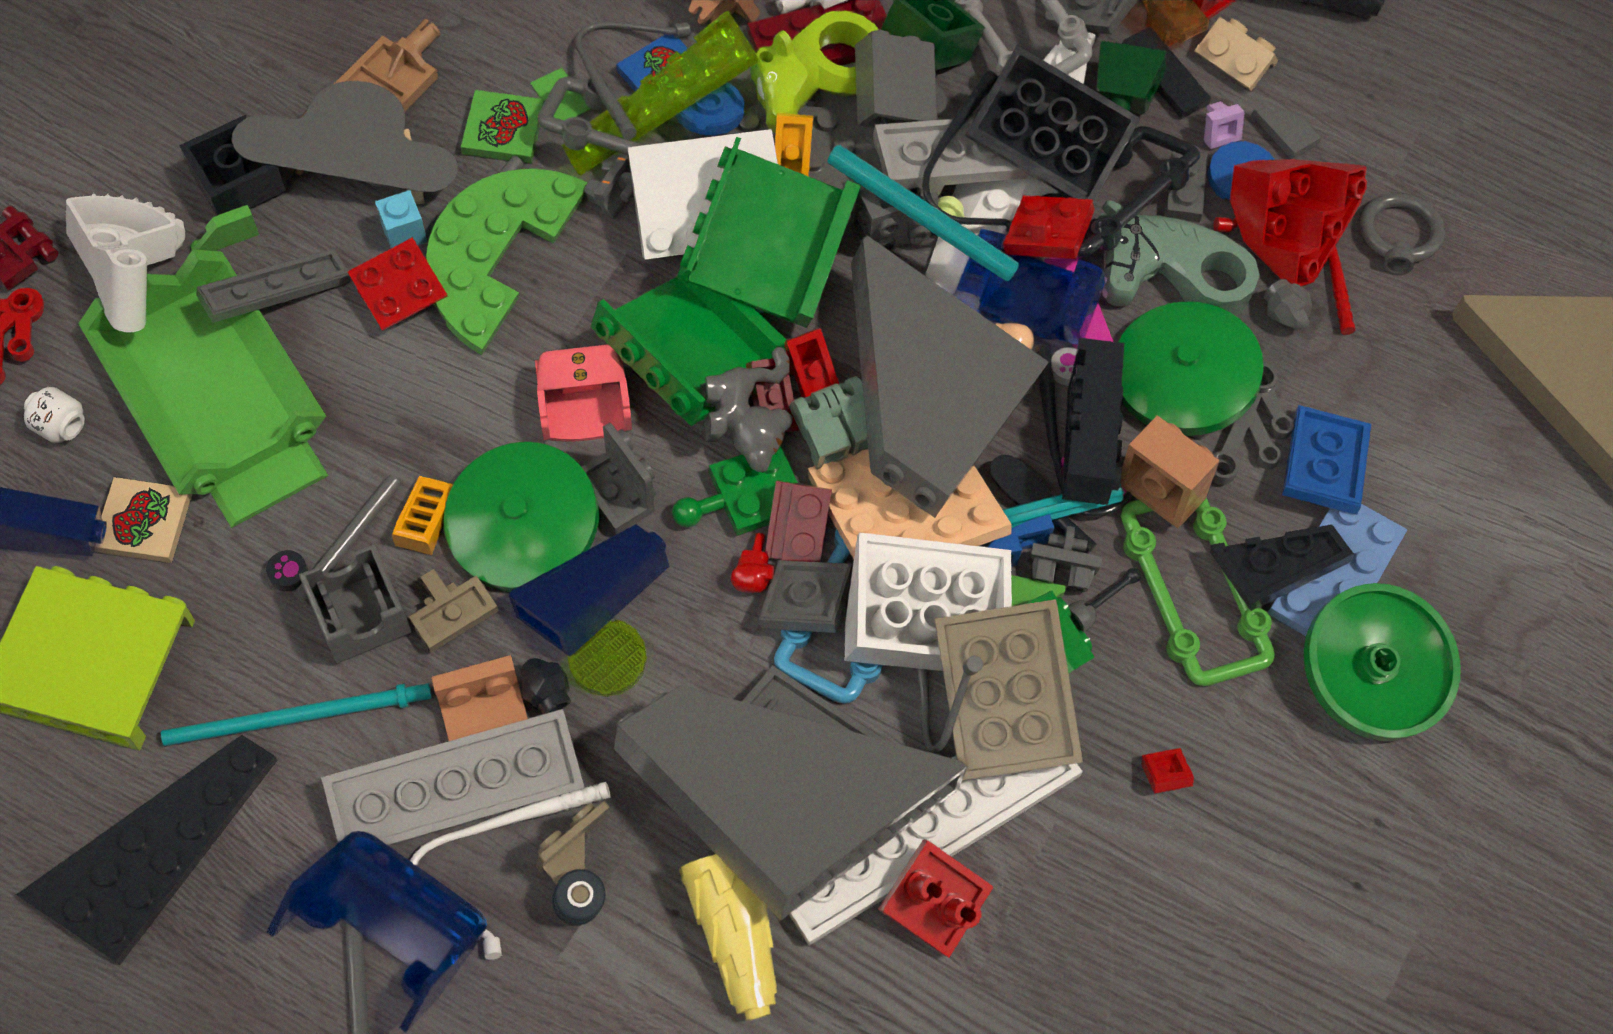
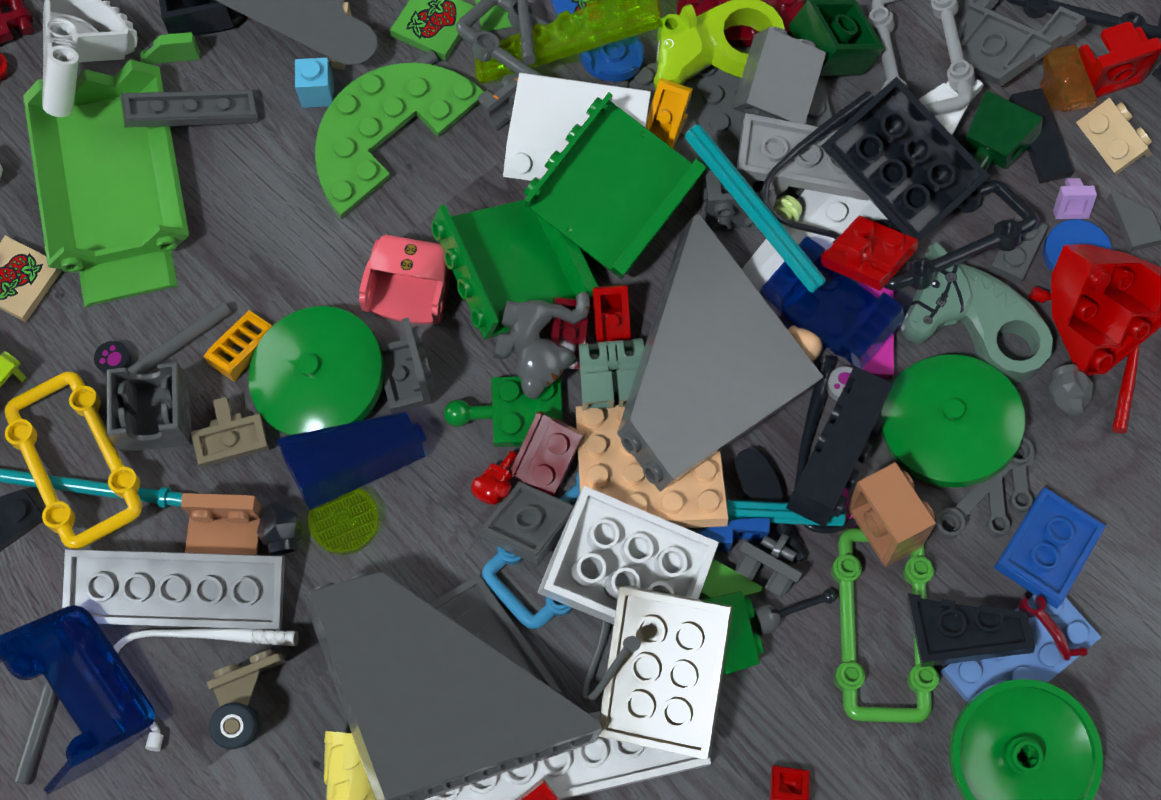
camera: 25 degrees right, 5 degrees up
(295, 745) = (121, 481): none -> yellow bar
(397, 284) = (289, 136): red hinge -> none
(1362, 533) = (1052, 628): none -> dark red piece

